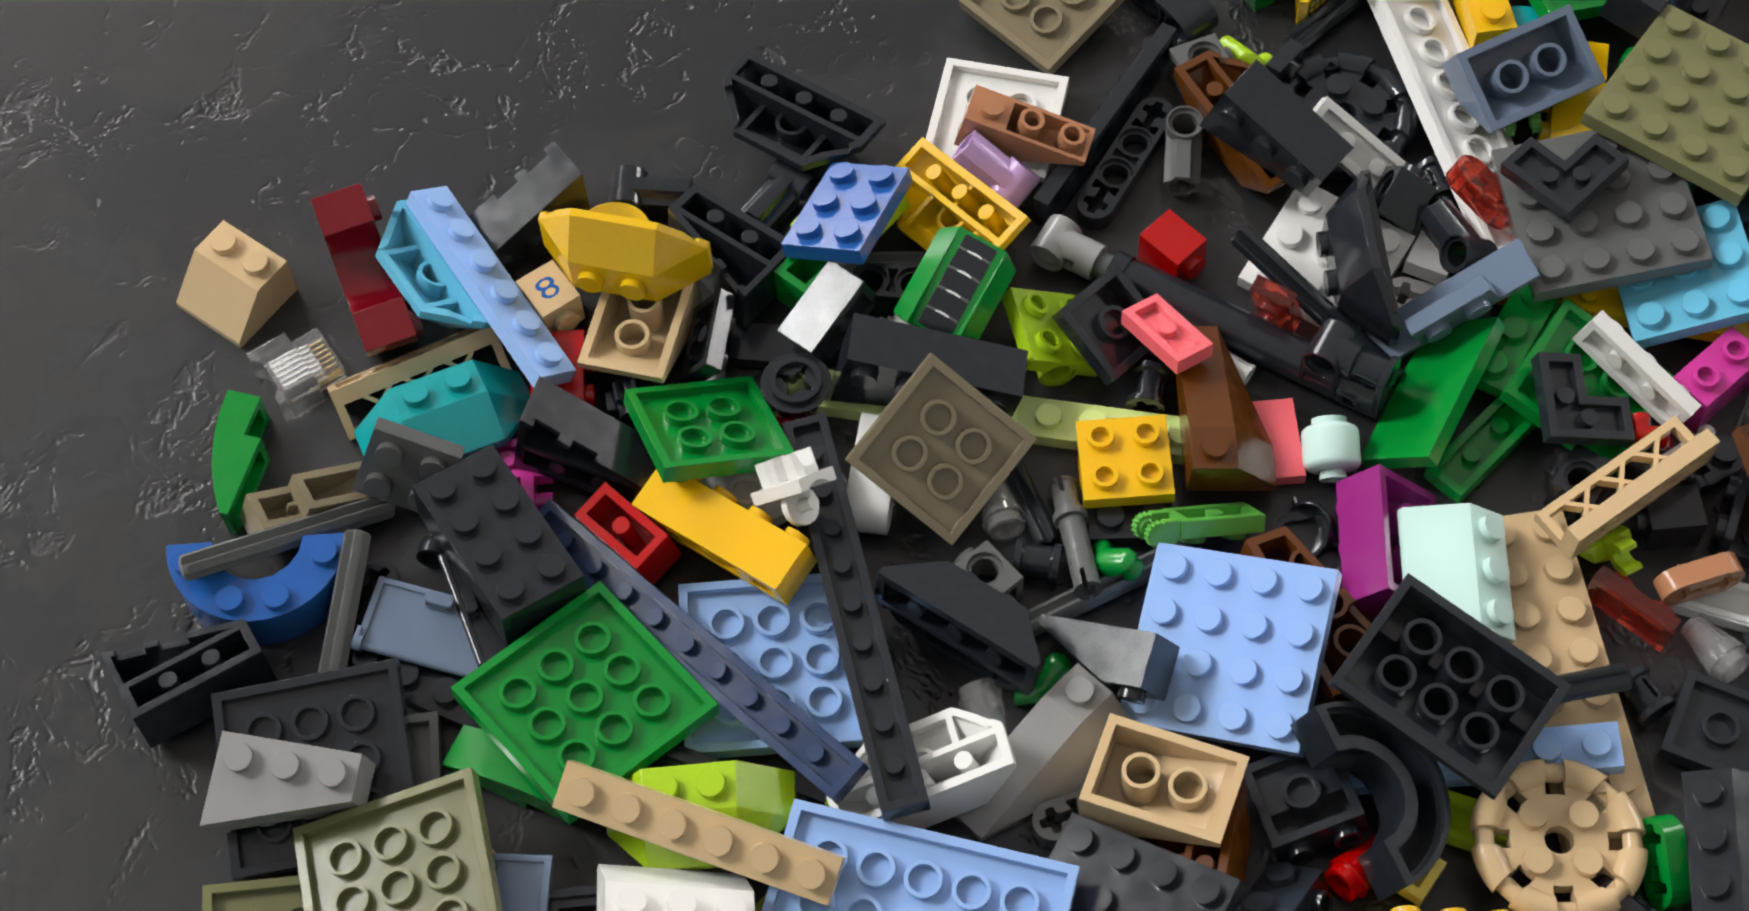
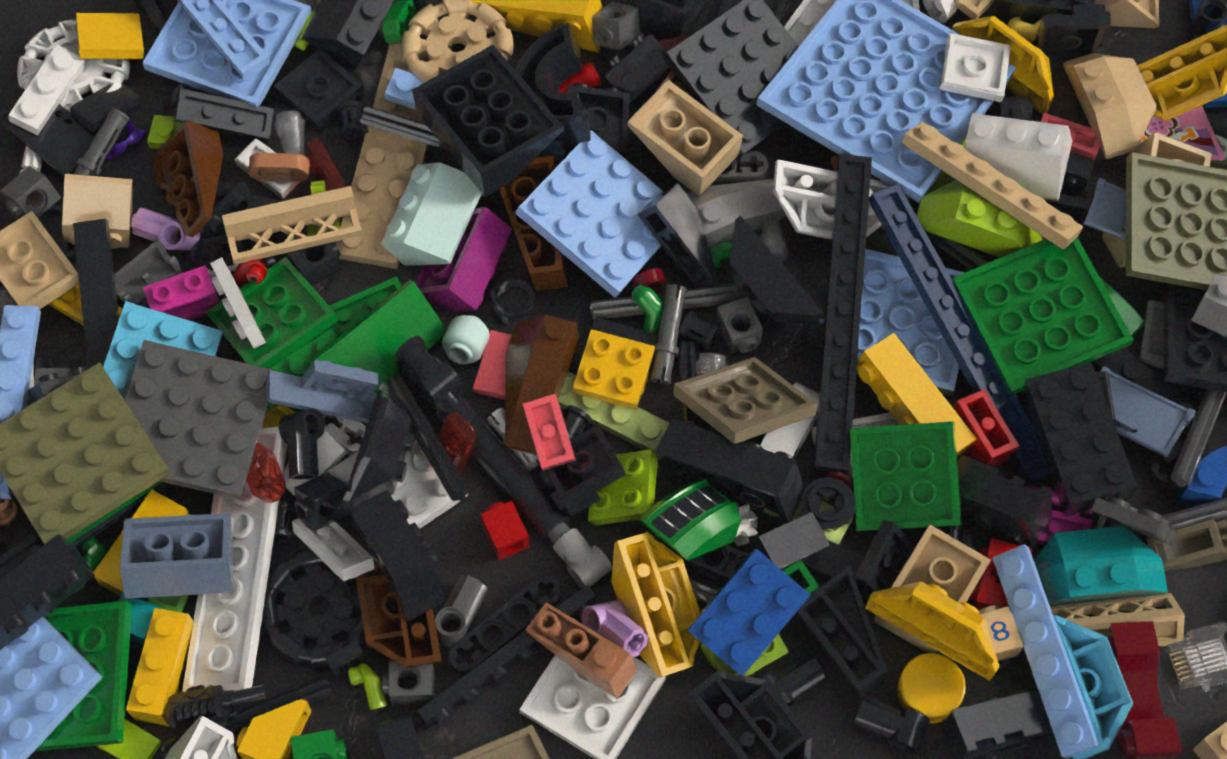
camera: 165 degrees left, 5 degrees up
(790, 479) = (862, 394): white hips -> none
(1128, 603) = (651, 278): none -> dark red tile
(1197, 522) = (583, 307): bright green hinge -> none
(1564, 184) = (208, 423): black plate -> none
(1568, 412) = (297, 283): black plate -> none

